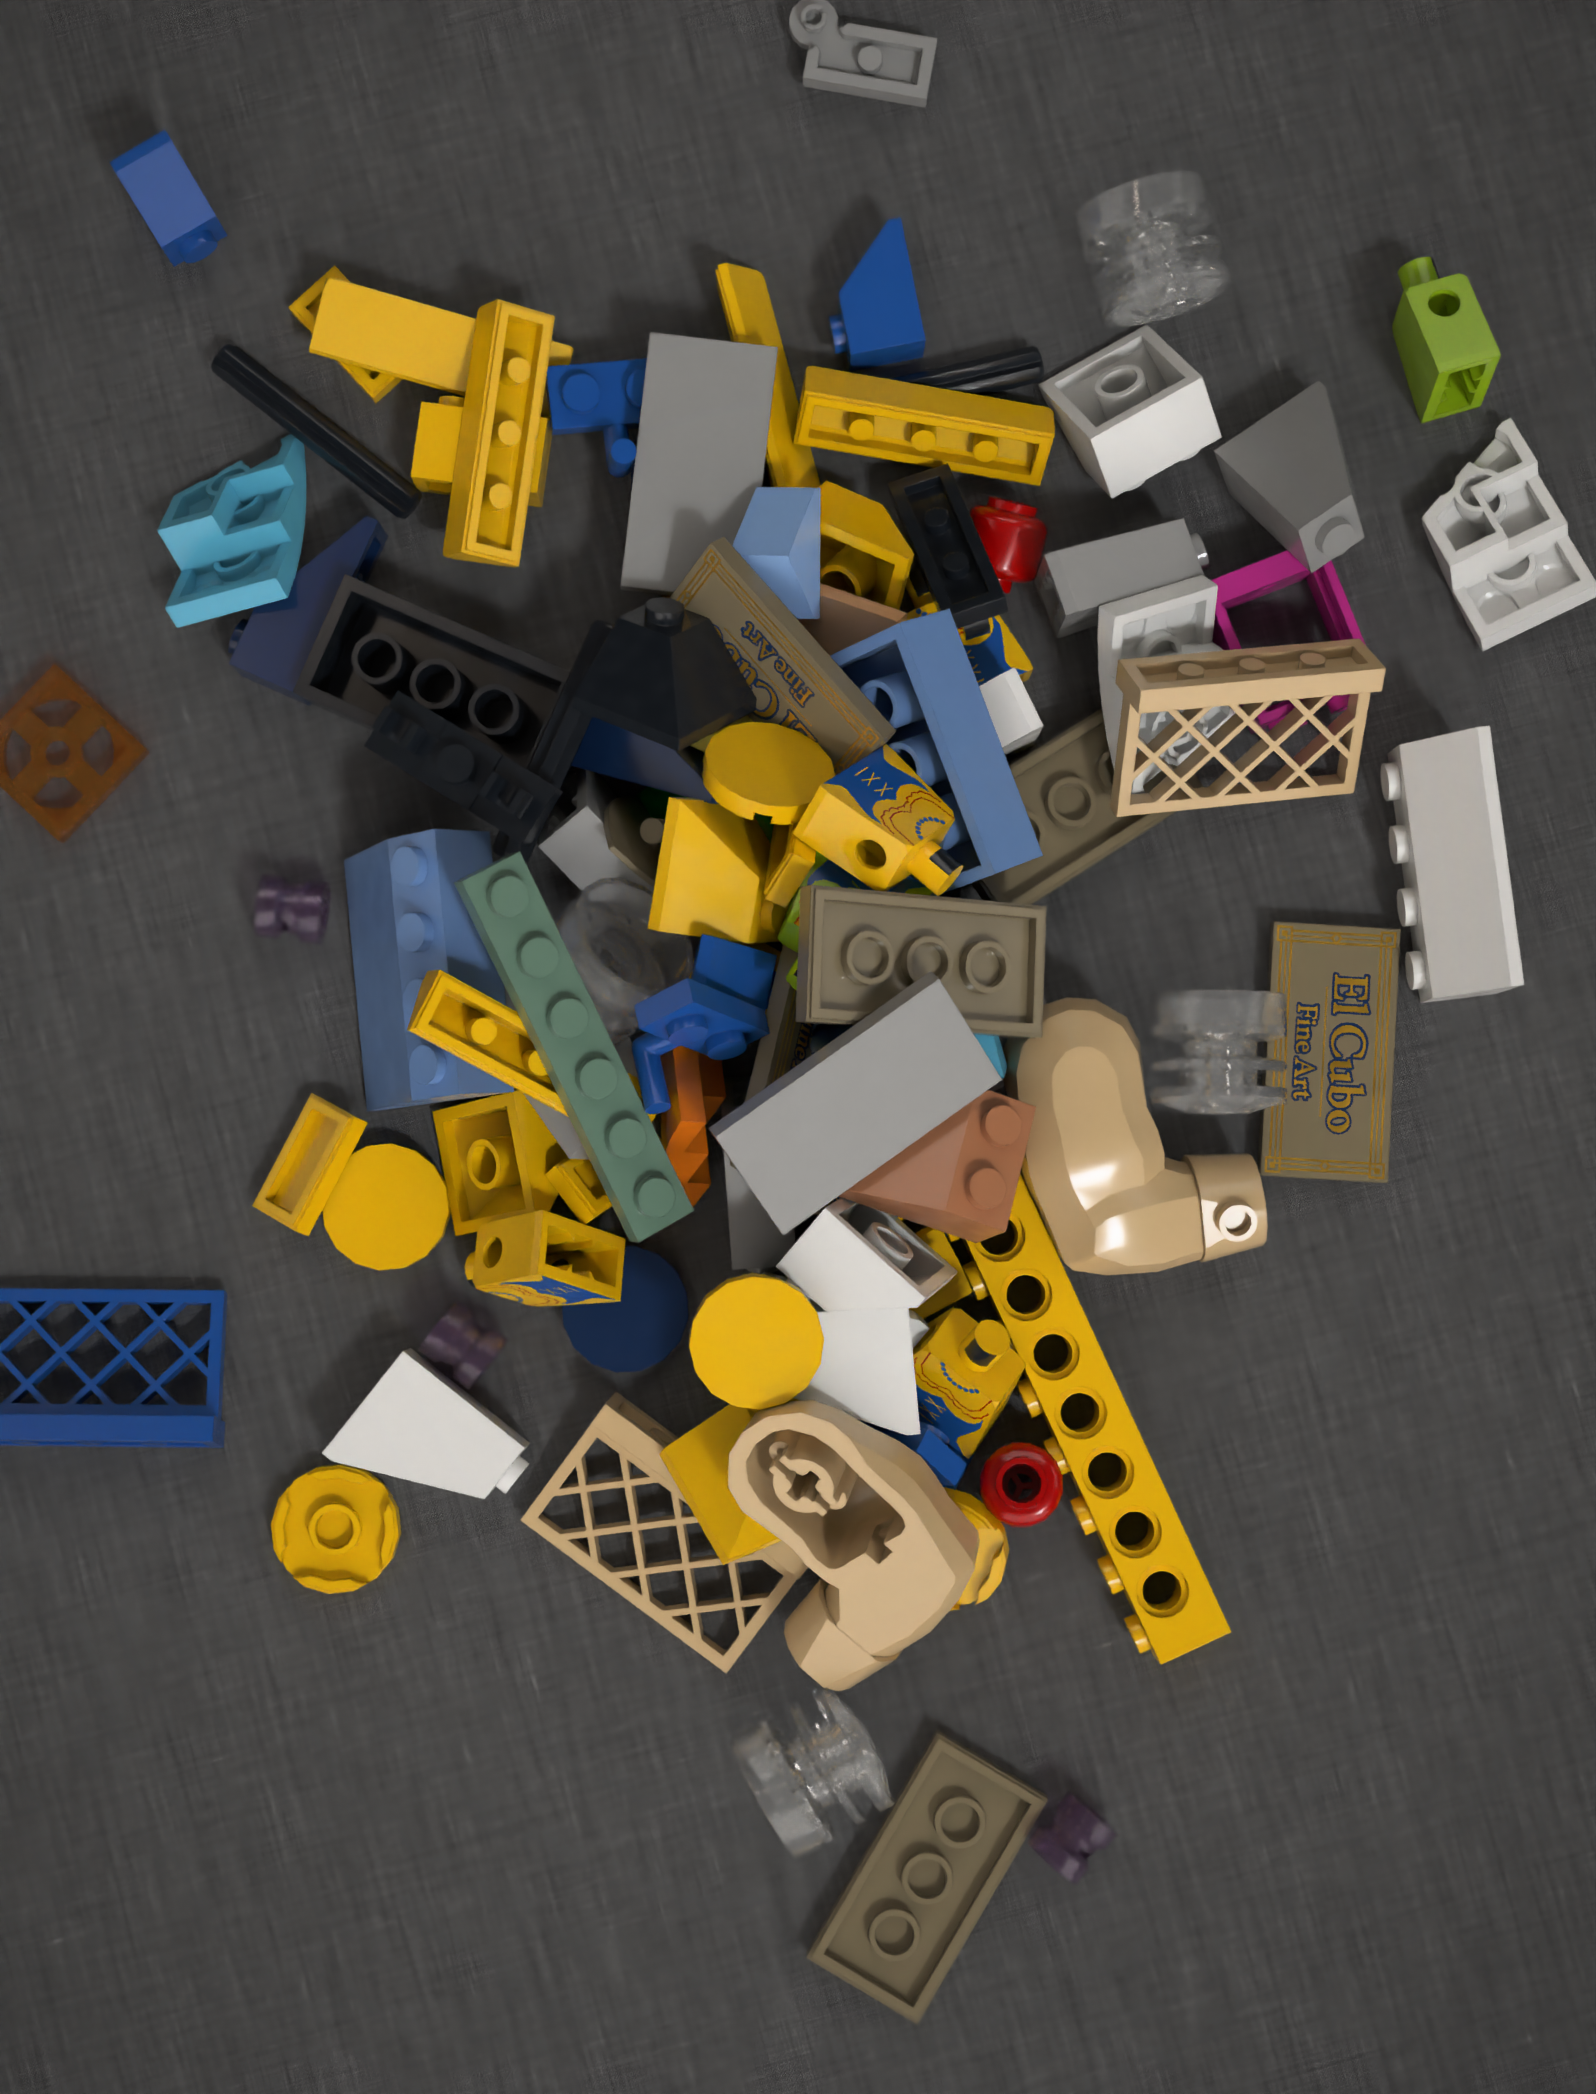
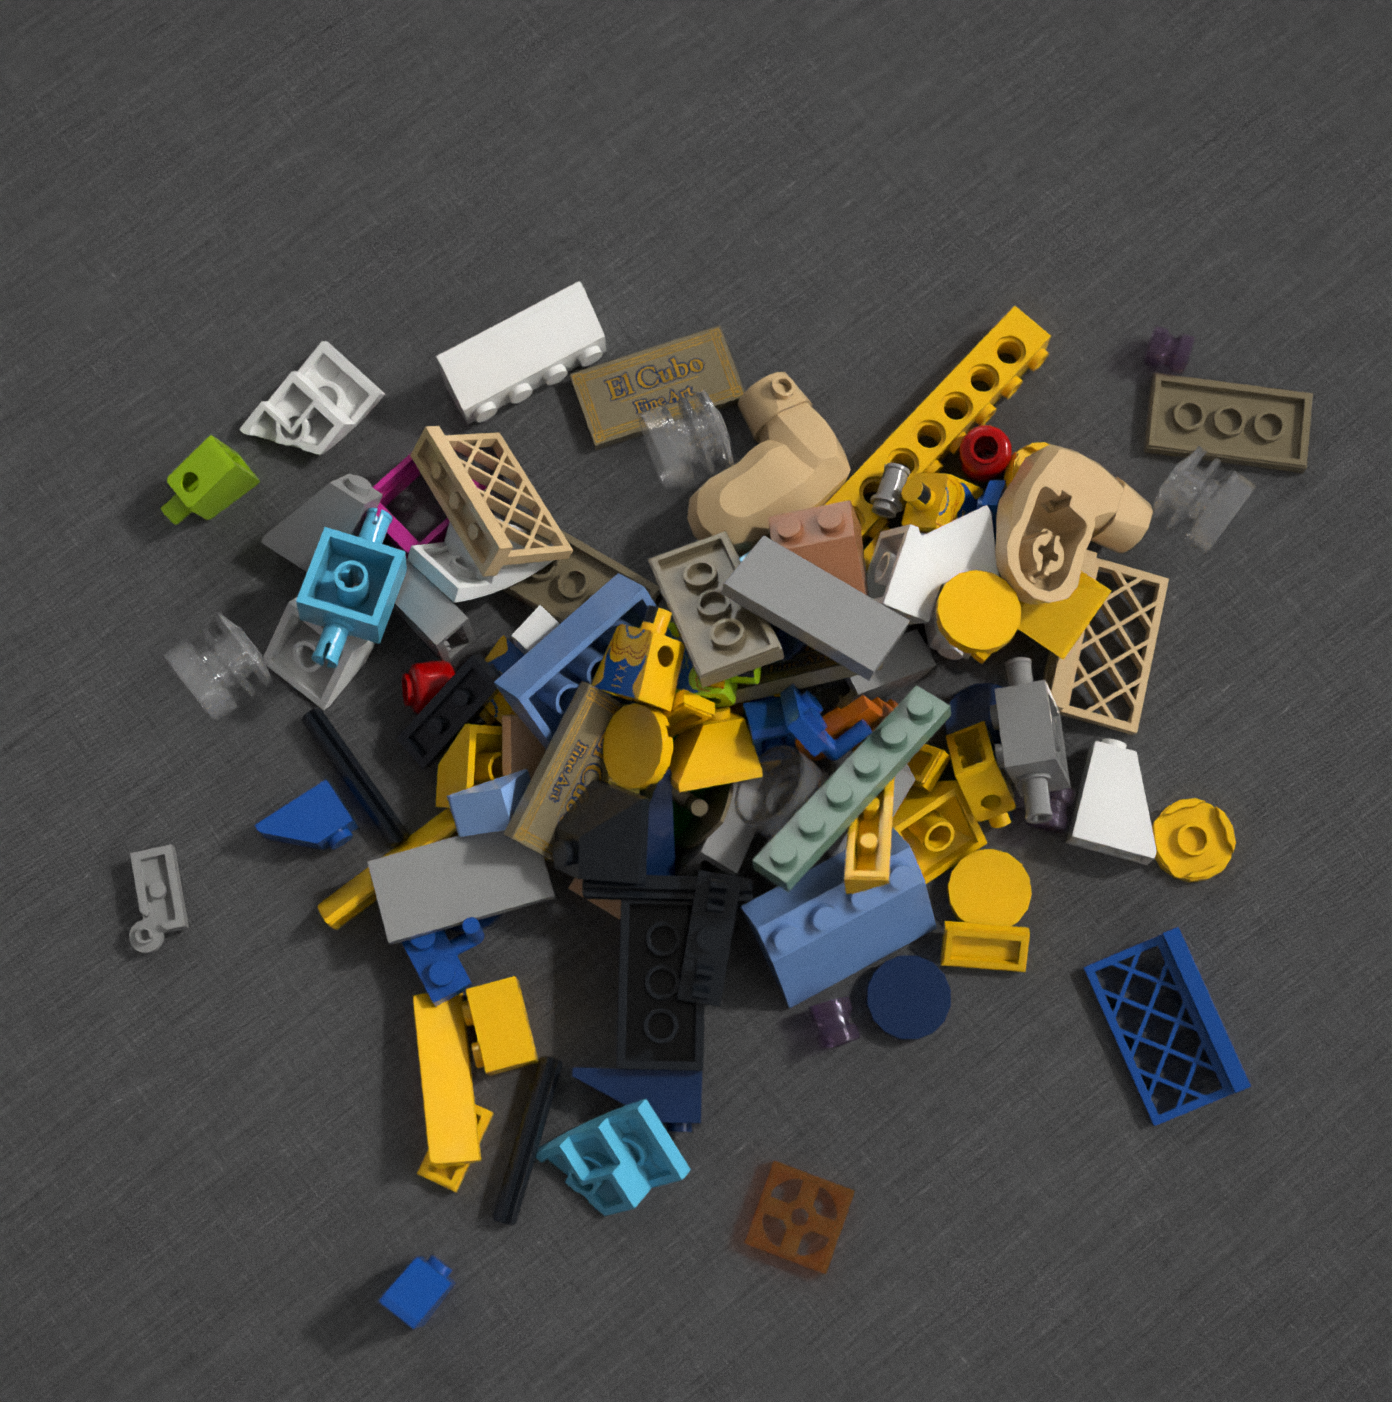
camera: 110 degrees left, 10 degrees down
(286, 1028) = (908, 997): none -> dark blue tile
(498, 434) = (488, 1014): yellow slope -> none
(556, 1346) = (1031, 739): none -> light grey brick
(924, 425) = (377, 763): yellow slope -> none
(1015, 1312) = (887, 500): none -> light grey pin
(1223, 470) = (328, 591): none -> medium azure brick

